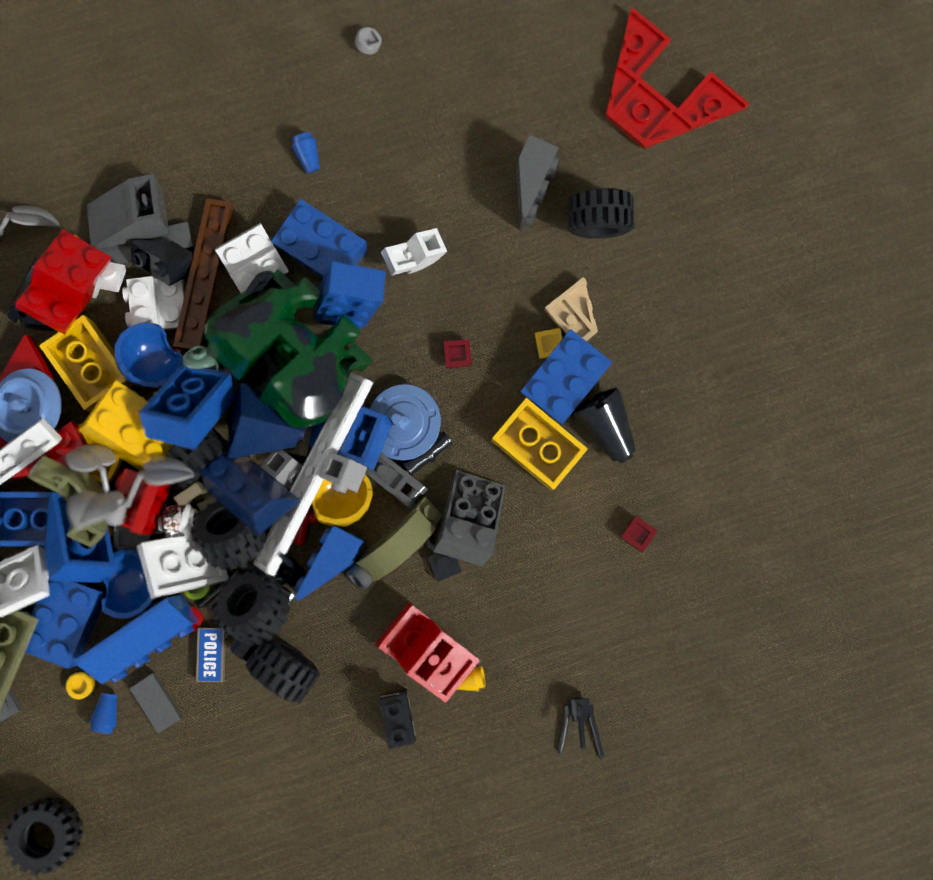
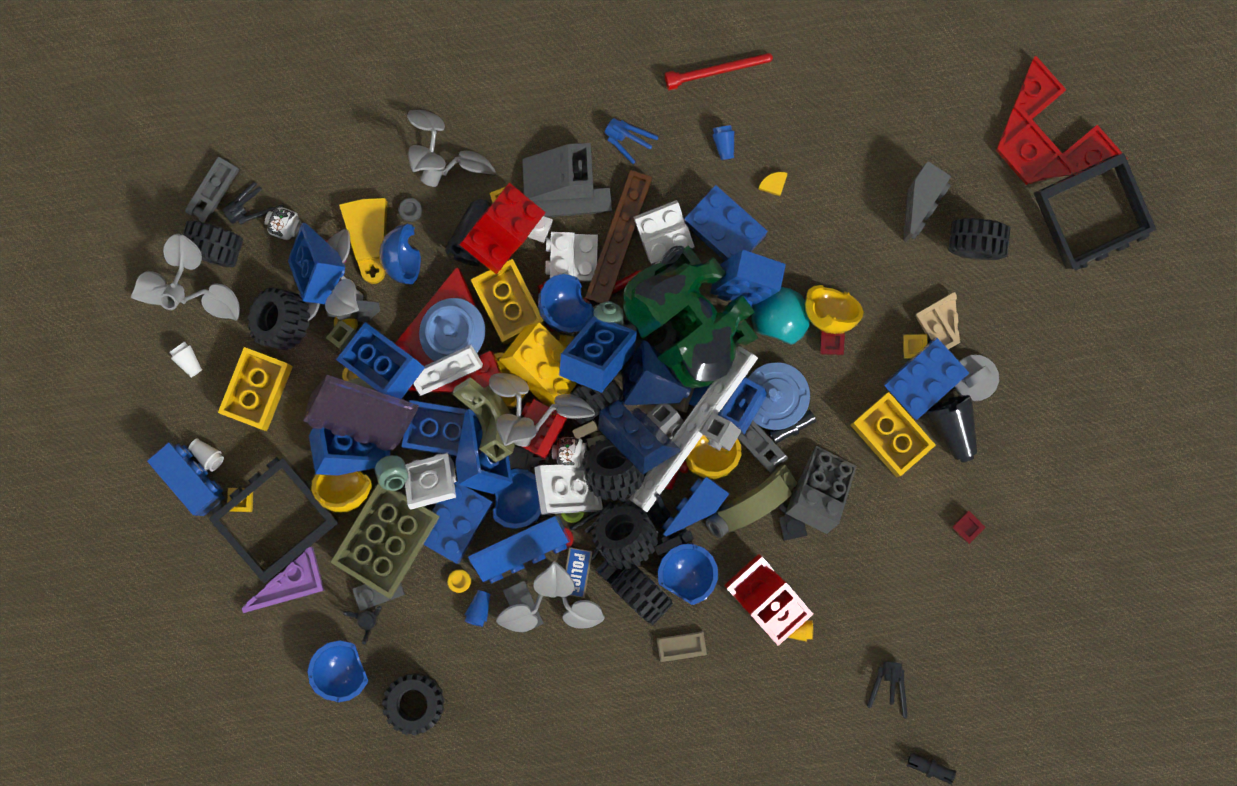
camera: 15 degrees right, 0 degrees up
(162, 259) = (584, 219): black slope -> none
(177, 675) = (552, 583): none -> light grey plant
(189, 158) = (619, 130): none -> blue plant
(242, 92) = (675, 79): none -> red piece
(307, 606) = (666, 543): none -> black plate
(332, 636) = (688, 573): none -> blue cylinder
(340, 718) = (681, 646): none -> dark tan tile
(368, 40) = (793, 49): light grey tile -> none
(368, 189) = (773, 183): none -> yellow tile
(397, 719) = (732, 654): black hips -> none
(398, 332) = (781, 316): none -> teal cylinder
(415, 254) = (808, 248): white brick -> none
(450, 316) = (832, 309): none -> yellow cylinder
(627, 367) = (981, 380): none -> light grey tile
(639, 811) = (931, 768): none -> black pin
(764, 145) = (1119, 243): none -> black window

